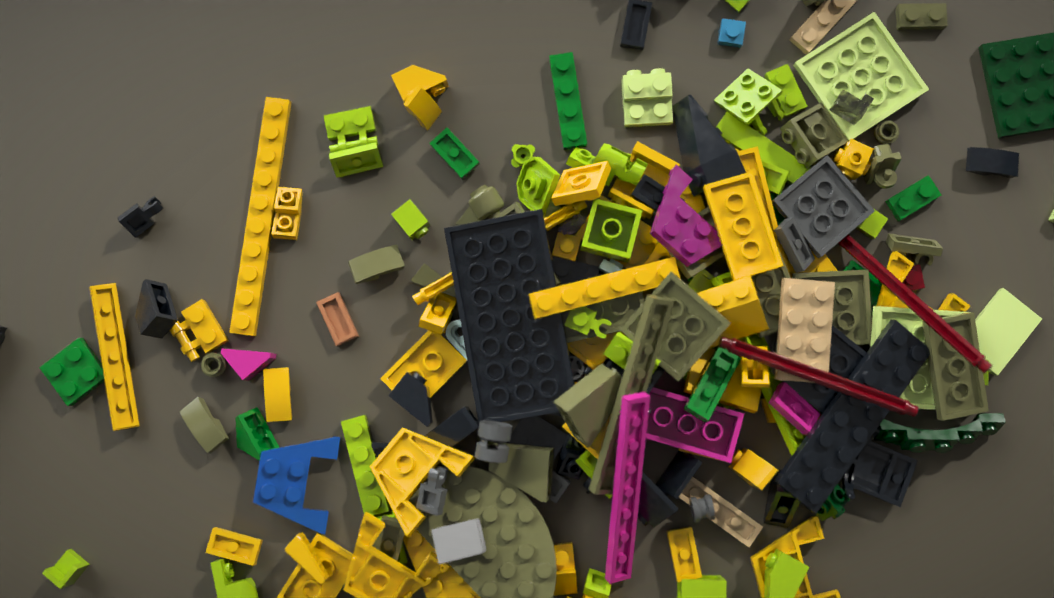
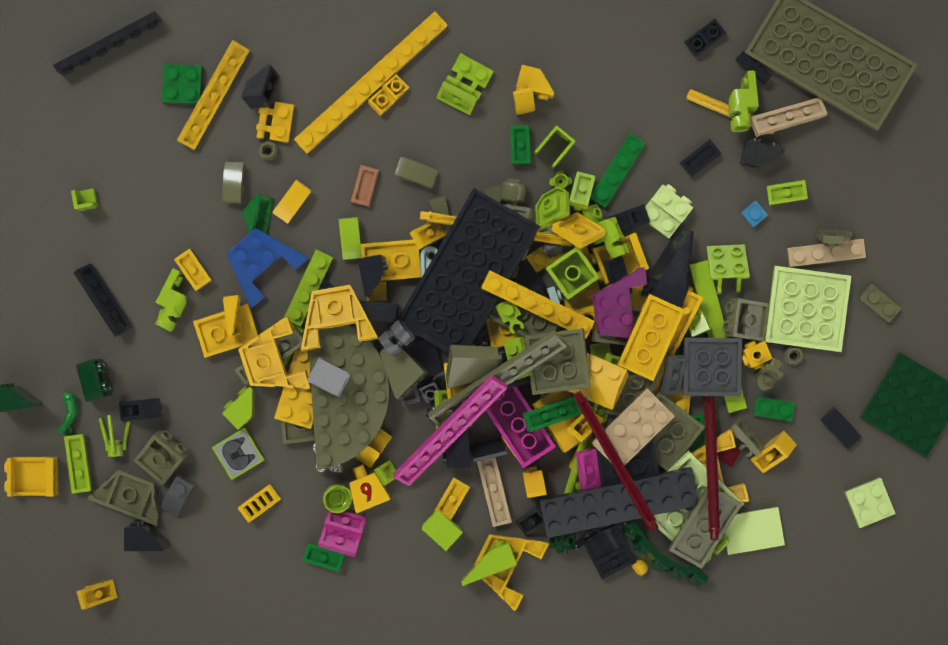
camera: 40 degrees right, 5 degrees up
(139, 219) = (296, 23): black plate -> none
(247, 363) = (290, 167): dark pink slope -> none
(365, 382) = (350, 238): none -> lime slope
(411, 220) = (459, 164): lime brick -> none
(431, 494) = (335, 337): dark grey plate -> none
(440, 411) = (379, 293): none -> yellow plate
(488, 109) = (565, 136): none -> lime piece
(551, 146) = (581, 191): none -> lime plate
(622, 131) = (632, 218): none -> black slope
(702, 508) = (484, 480): dark grey wheel -> none
(791, 99) = (754, 284): lime plate -> none
(851, 107) = (783, 321): clear smoke panel -> none
(926, 461) = (640, 567): none -> yellow hinge
(954, 235) = (774, 452): none -> yellow slope

